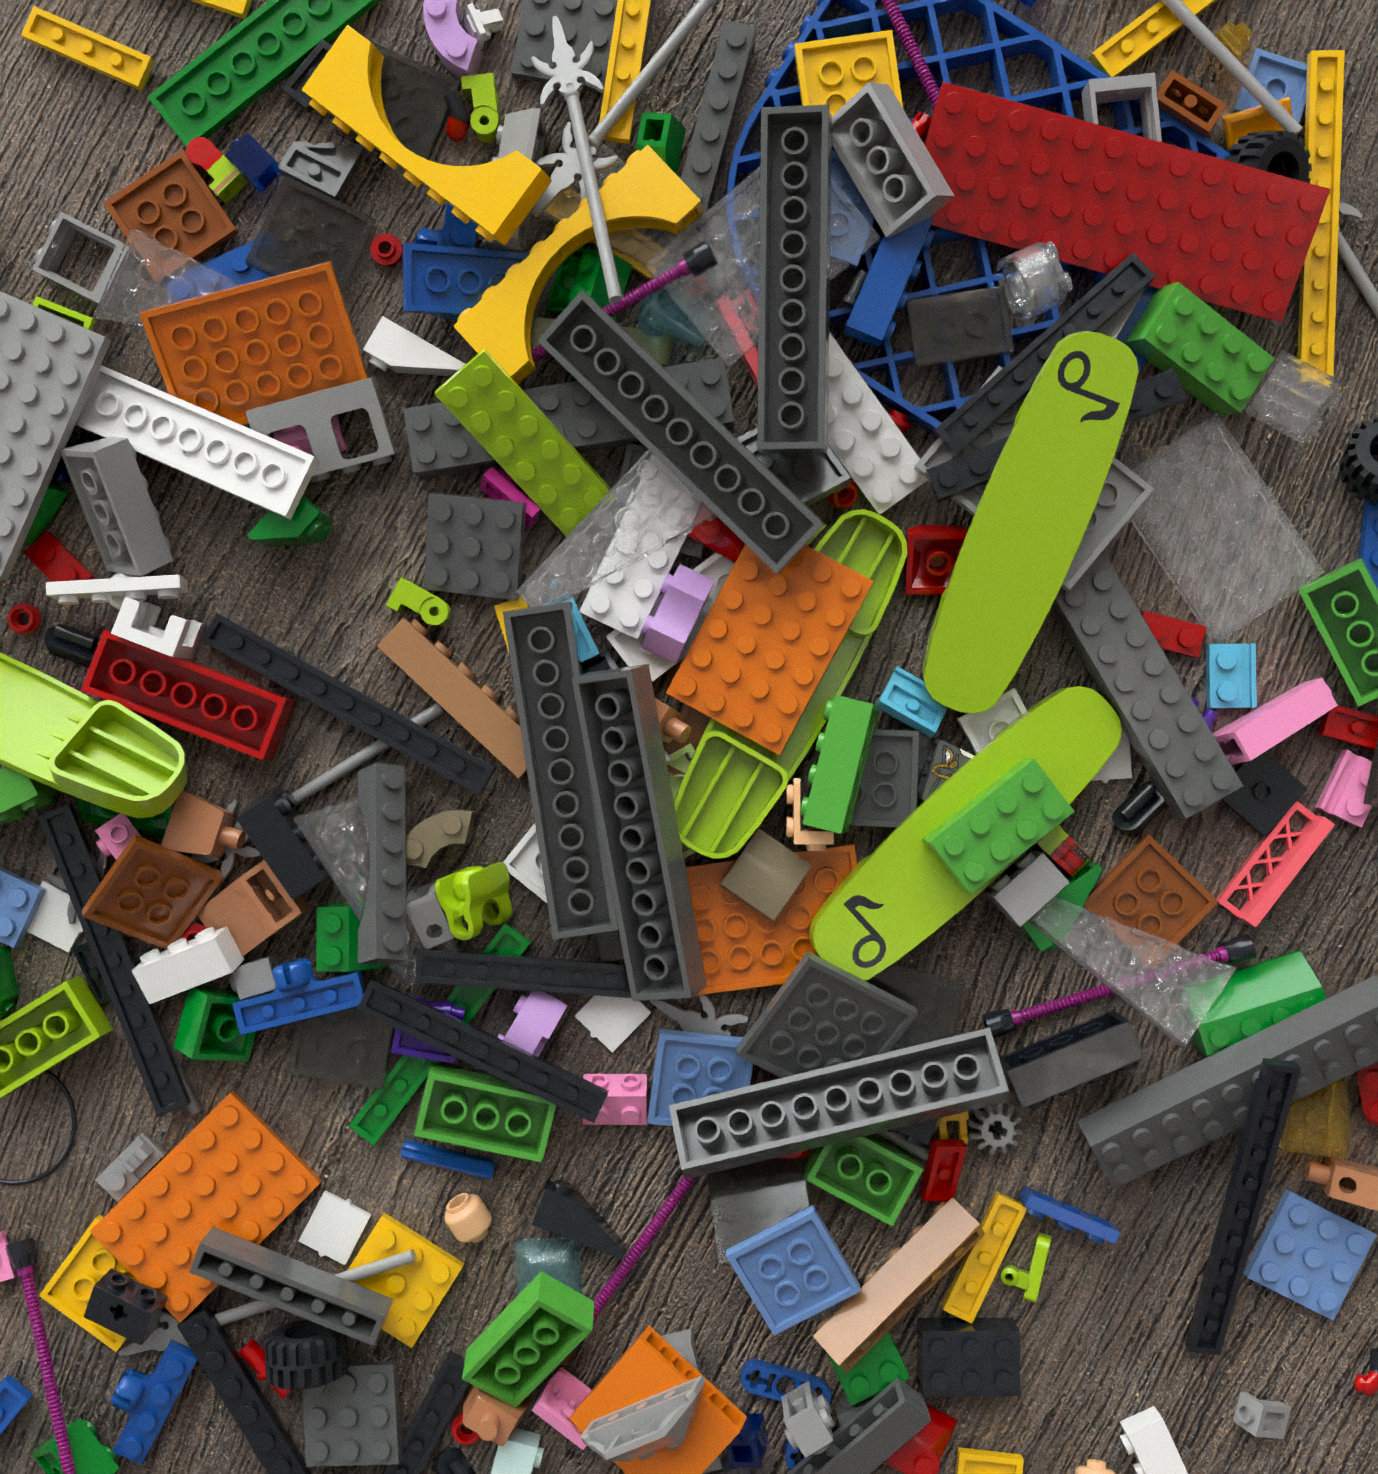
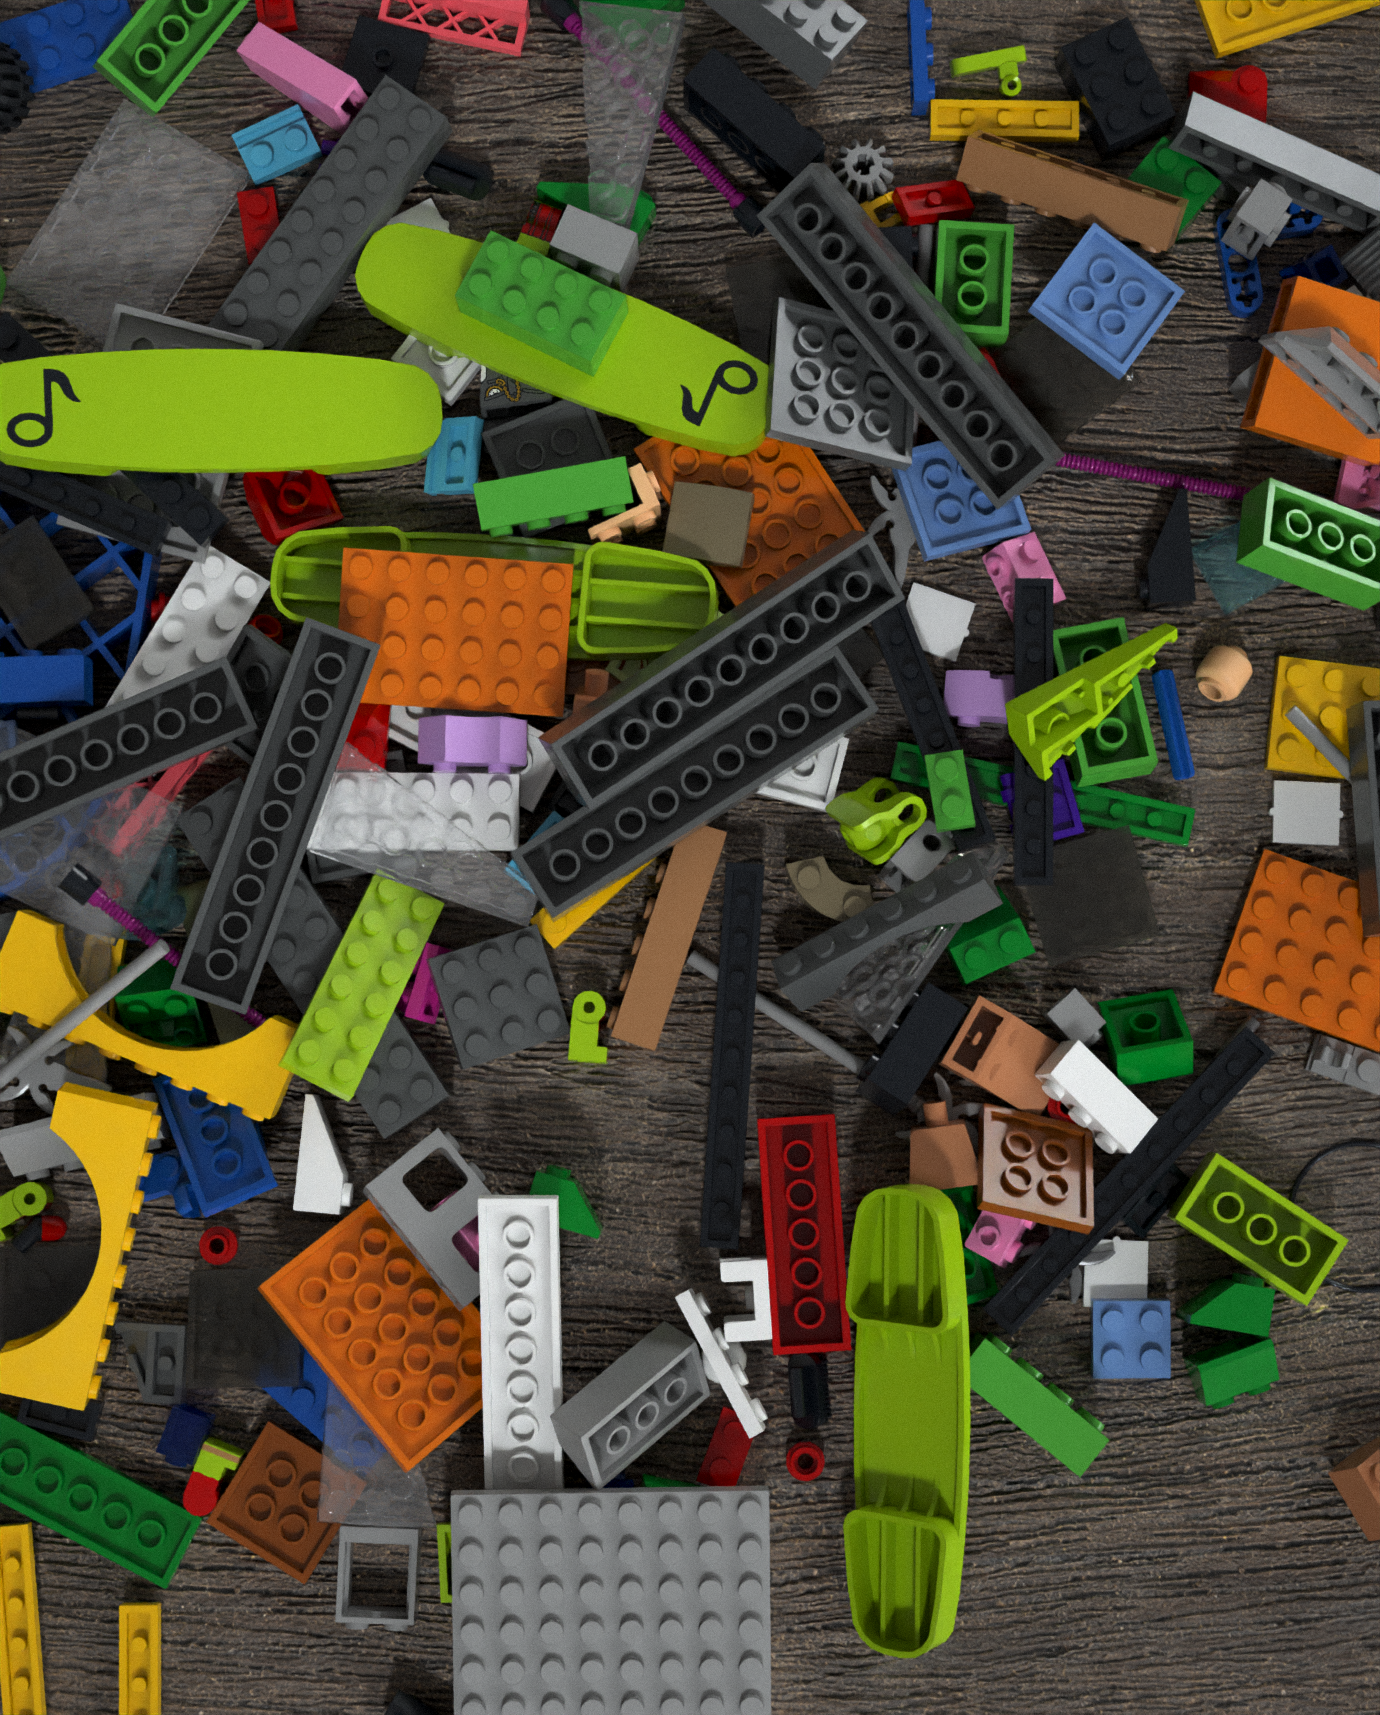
camera: 110 degrees left, 5 degrees down
(298, 997) = (1073, 958): blue plate -> none
(466, 964) = (949, 791): none -> bright green plate
(486, 1079) = (1057, 712): none -> lime wedge
(1151, 893) = (541, 122): dark orange plate -> none

